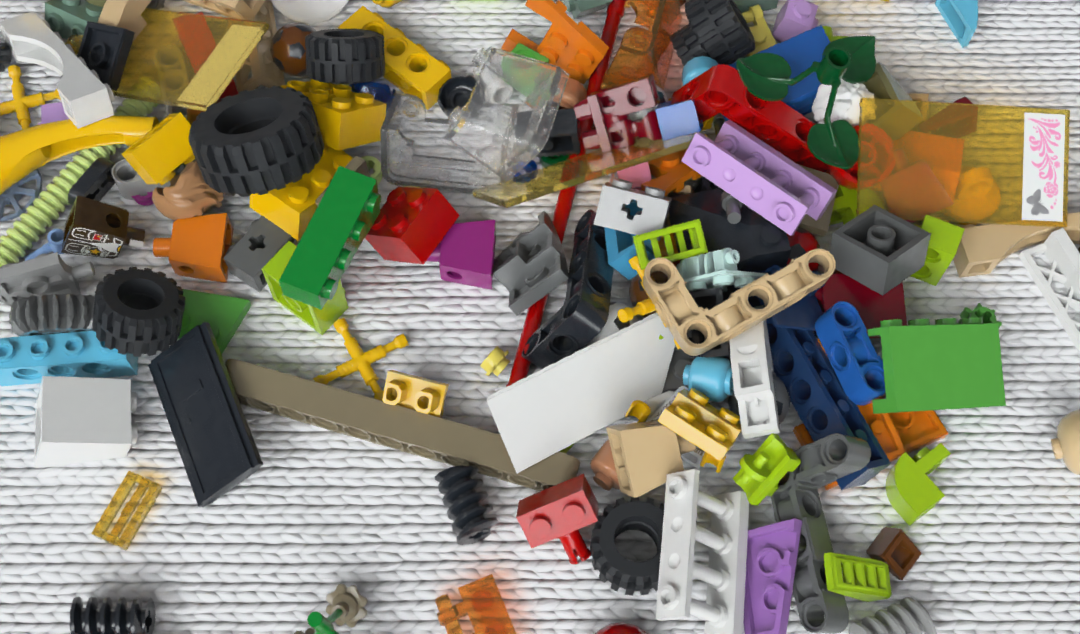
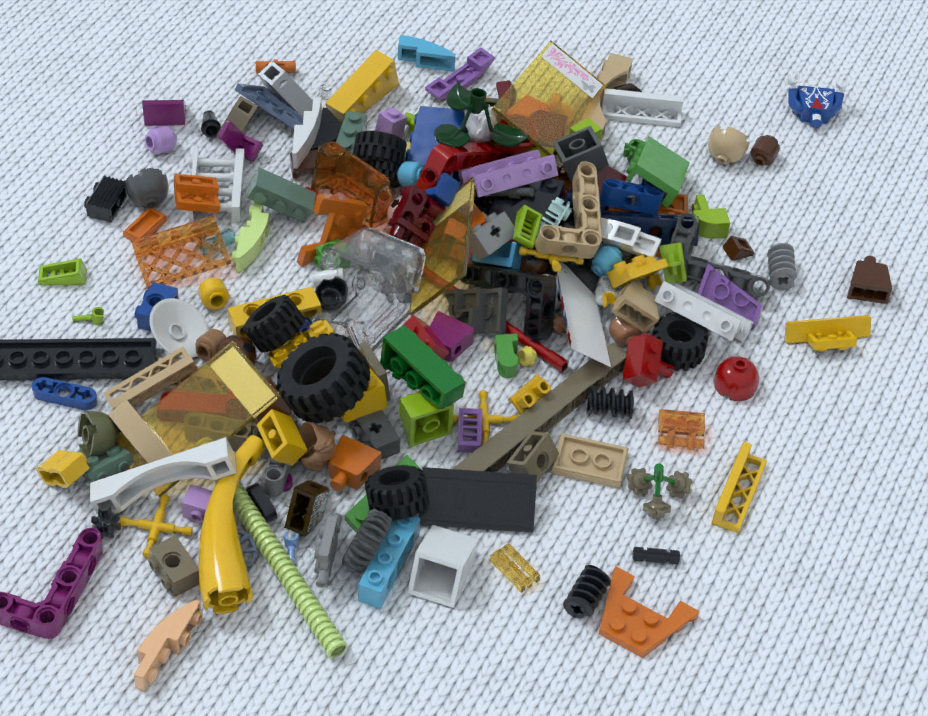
camera: 65 degrees left, 15 degrees down
(106, 51) = (164, 443): black tile -> none
(305, 447) = (534, 455): none -> dark tan brick
(308, 14) = (208, 343): none -> medium nougat head
(319, 341) = (469, 445): none -> medium lavender slope
(359, 524) = (590, 460): none -> tan tile
(480, 334) = (506, 360): none -> bright green leg
(862, 577) = (748, 261): lime slope -> none
(950, 59) = (466, 75): none -> medium lavender slope

